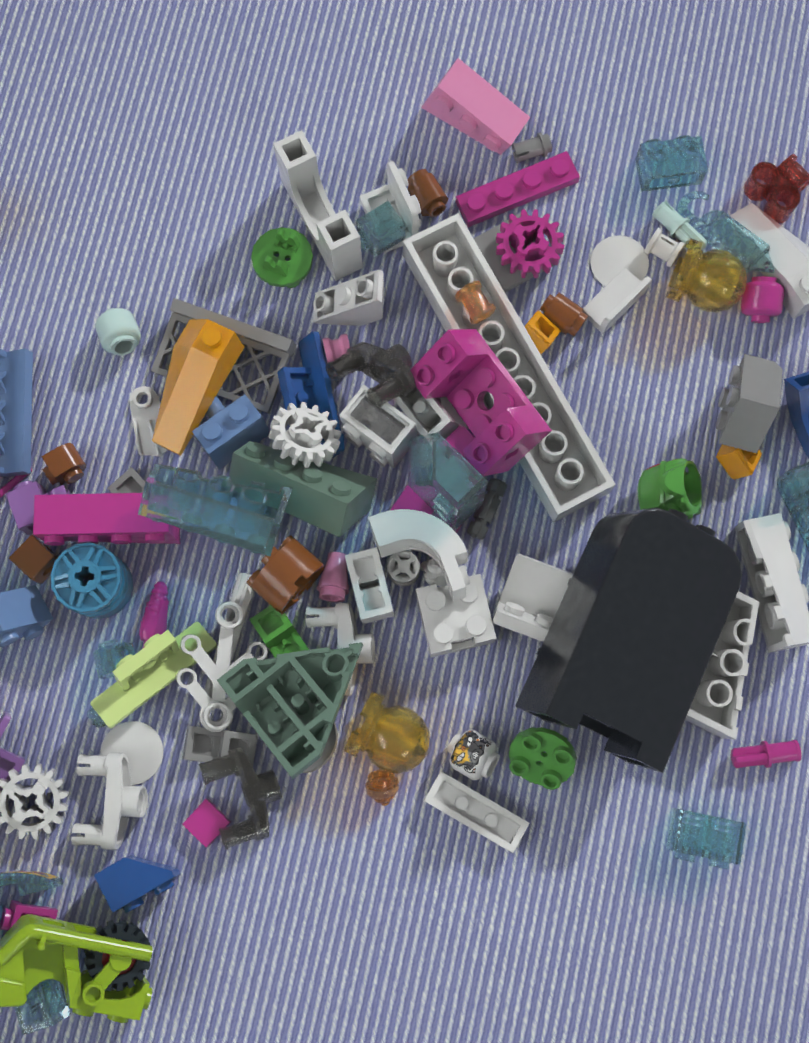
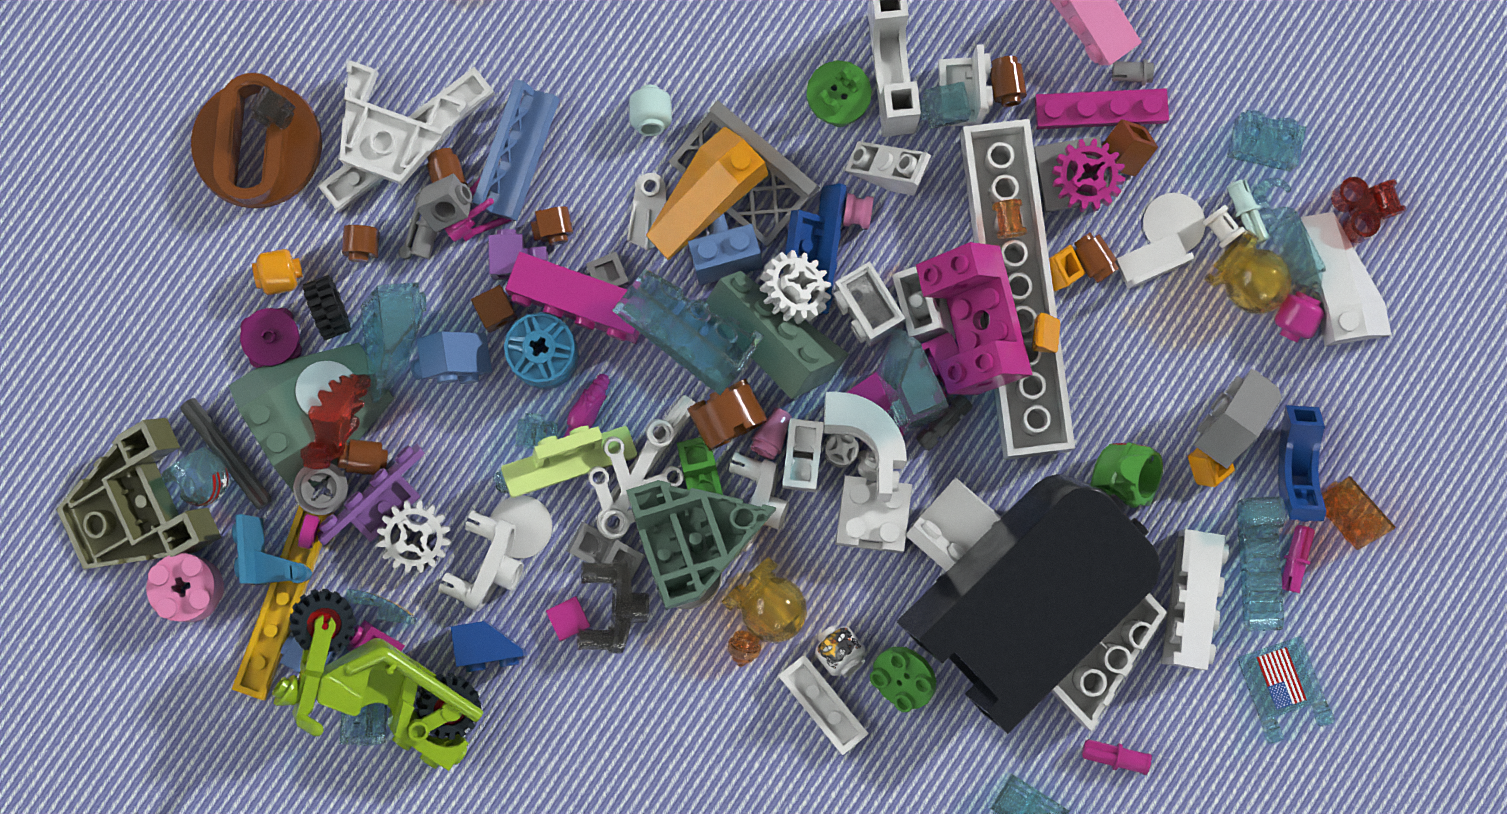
camera: 20 degrees right, 5 degrees up
(387, 367) = (898, 248): clear smoke connector -> none
(547, 391) = (1046, 333): none -> light orange slope
(559, 205) = (1133, 145): none -> dark orange panel

